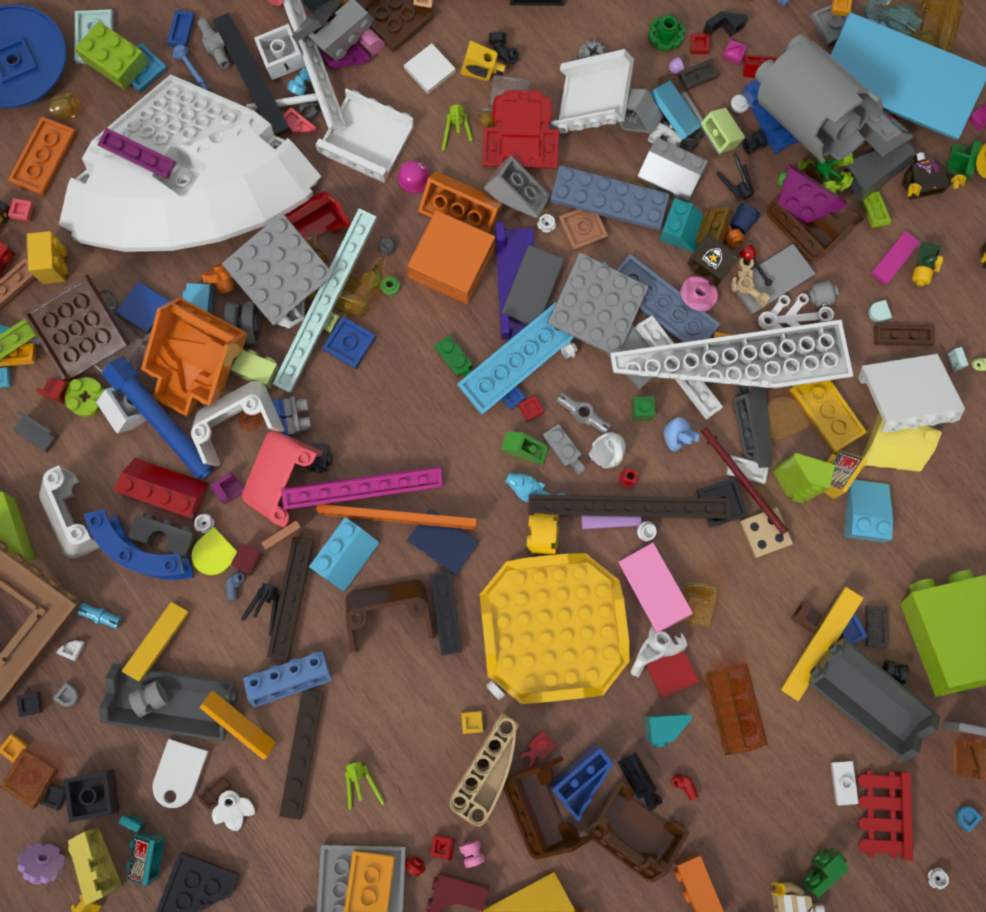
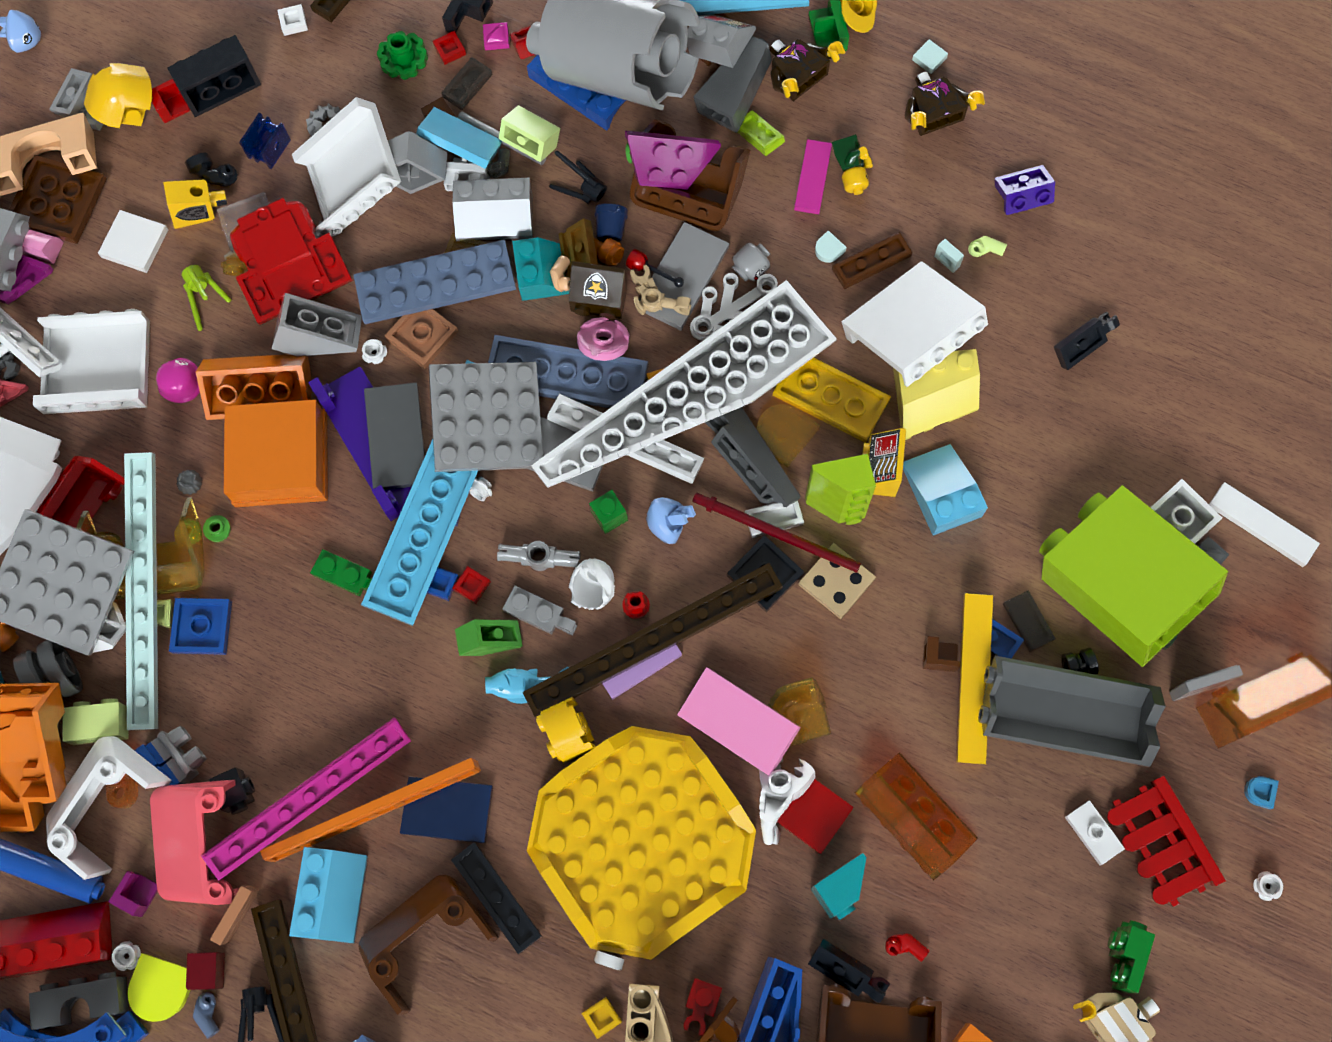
camera: 20 degrees left, 5 degrees down
(546, 43) = (261, 139): none -> clear blue piece
(646, 531) = (691, 658): white plate -> none
(676, 65) = (434, 87): lavender hinge -> none
(691, 241) = (559, 281): none -> light nougat arm
(739, 104) = (533, 93): white plate -> none
(754, 142) = (575, 127): black wheel -> none
(828, 170) = (678, 114): lime plant -> none

